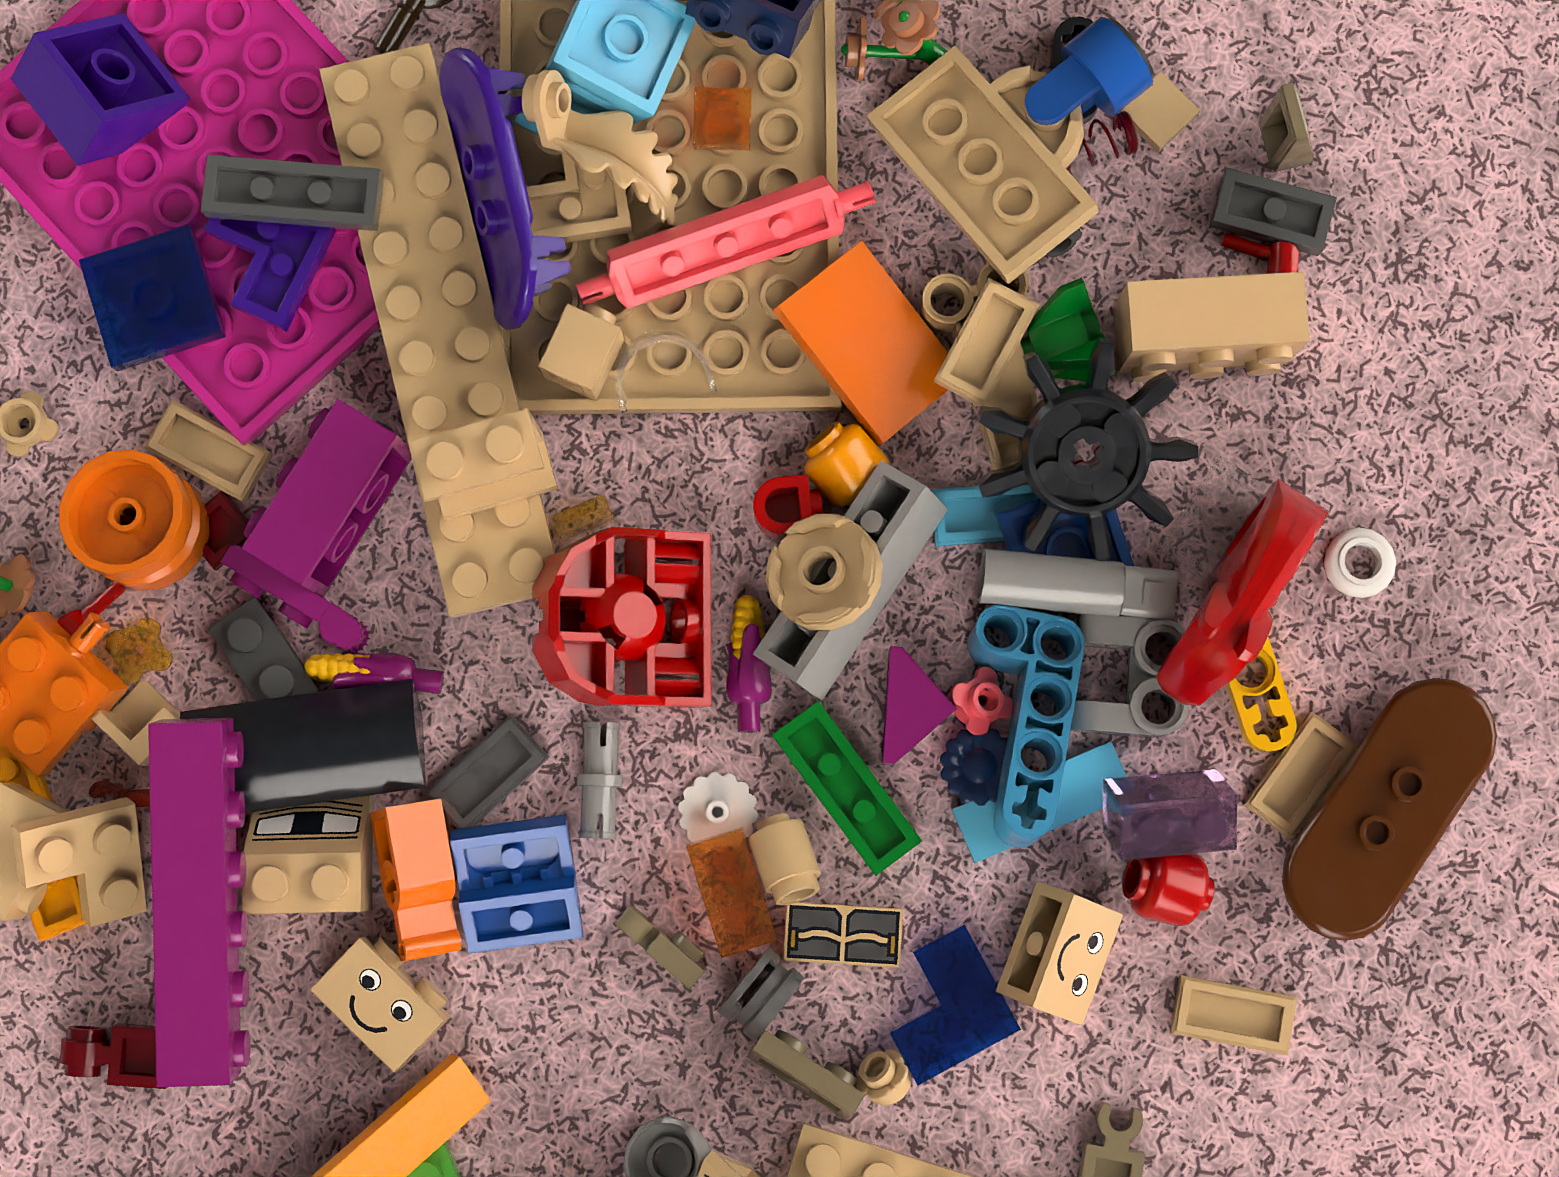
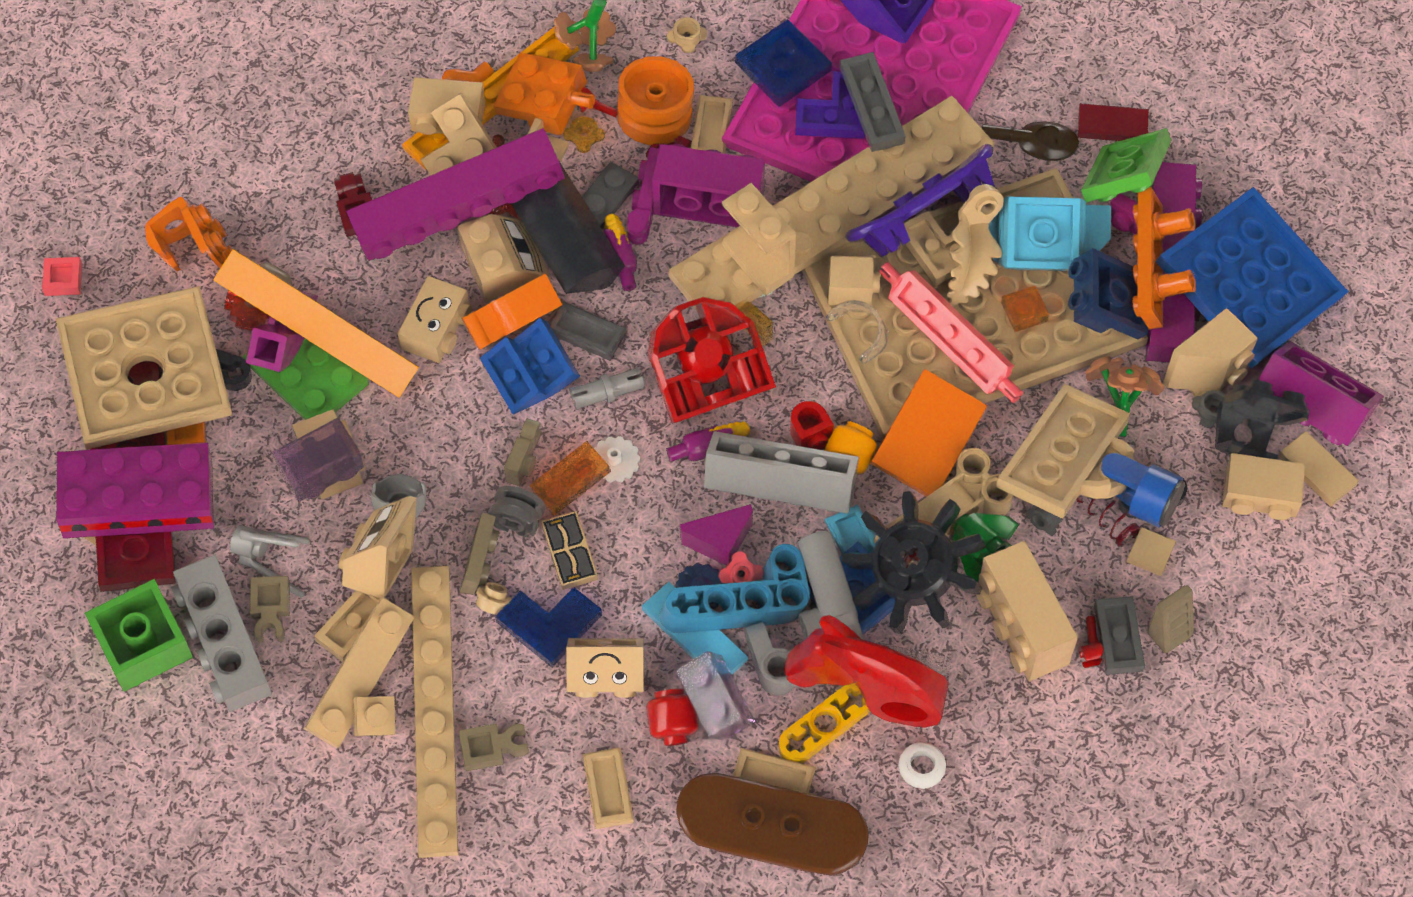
camera: 65 degrees right, 20 degrees down
(785, 859) = (600, 497): tan brick -> none
(846, 788) = (657, 519): green plate -> none
(849, 590) = (772, 459): tan tile -> none
(986, 343) = (968, 489): tan tile -> none

